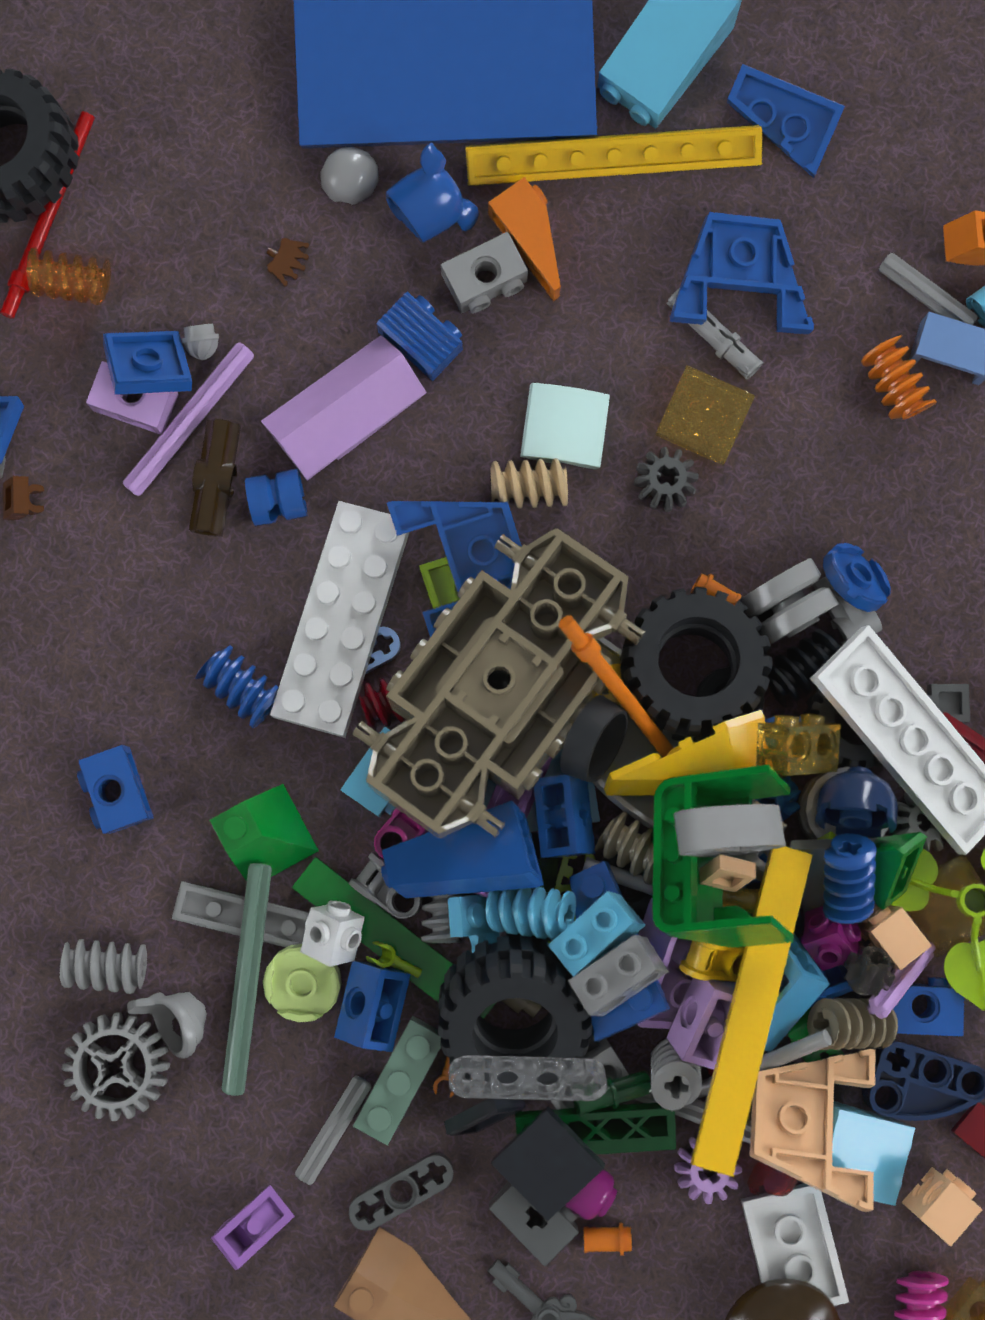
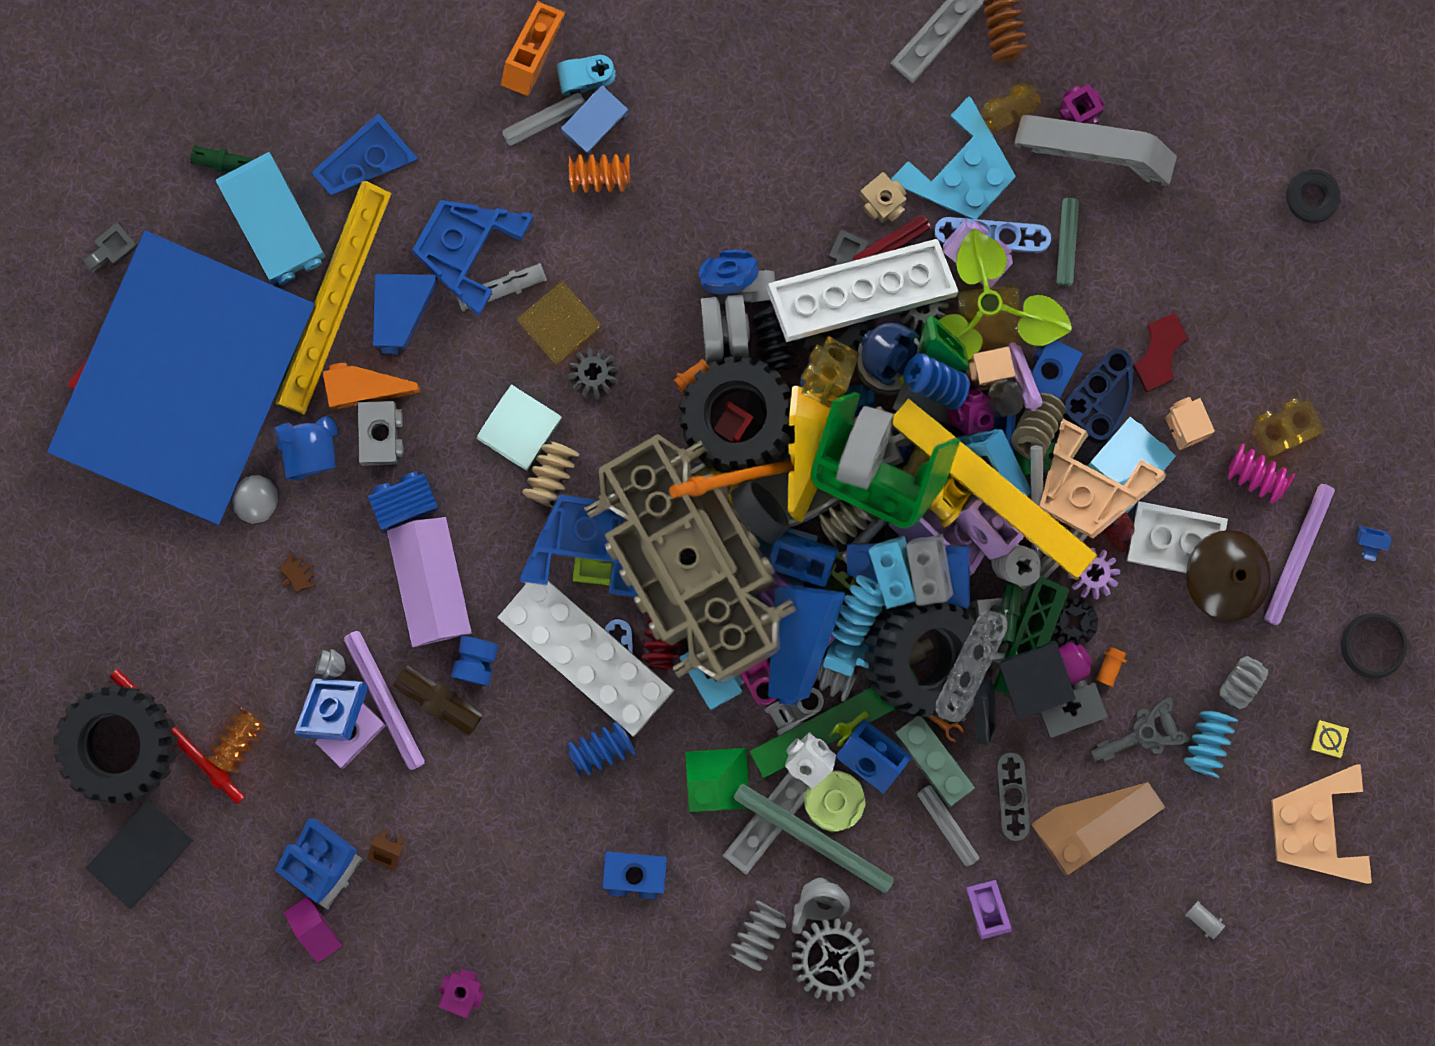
camera: 65 degrees left, 0 degrees up
(635, 231) = (399, 308): none -> blue slope
(646, 1187) = (1088, 623): none -> black gear
(684, 665) = (734, 423): none -> red panel
(727, 873) = (894, 462): light nougat tile -> none

